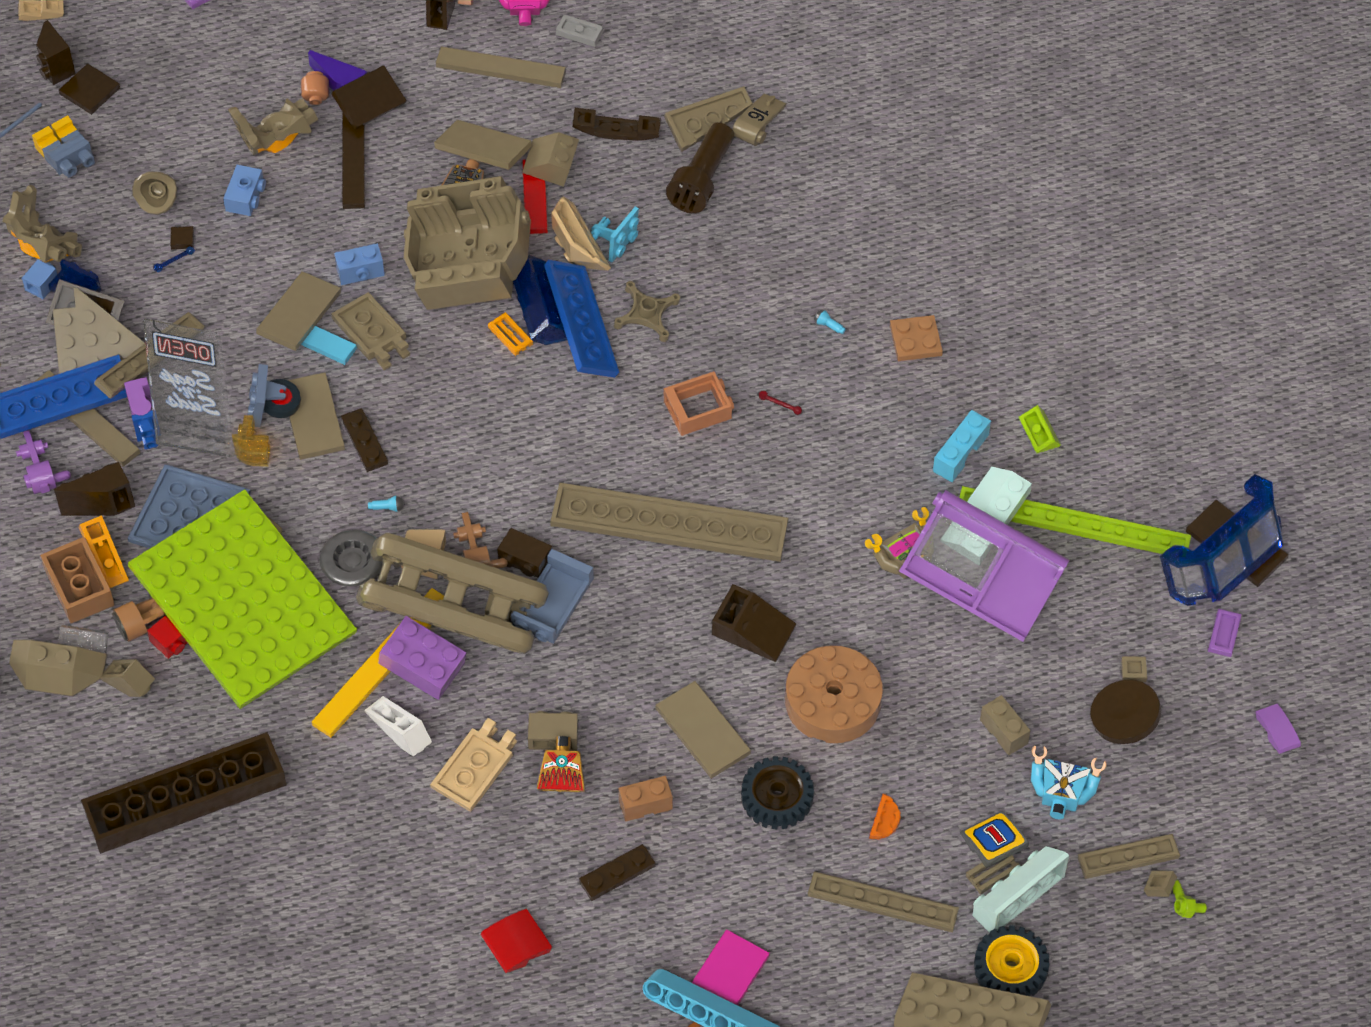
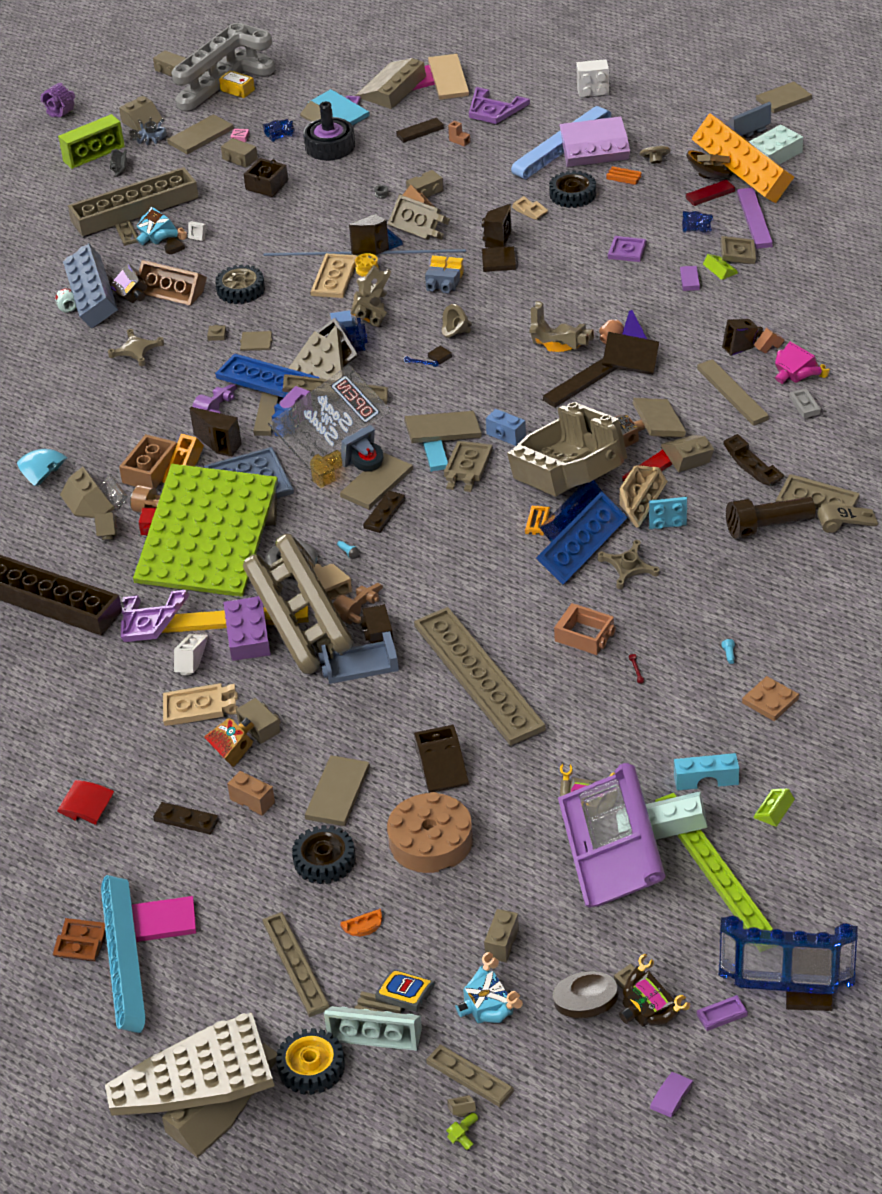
camera: 55 degrees right, 15 degrees down
(244, 190) = (501, 353): medium blue brick -> none
(318, 735) = (148, 622): none -> medium lavender wing
(1174, 672) = (647, 999): none -> torso

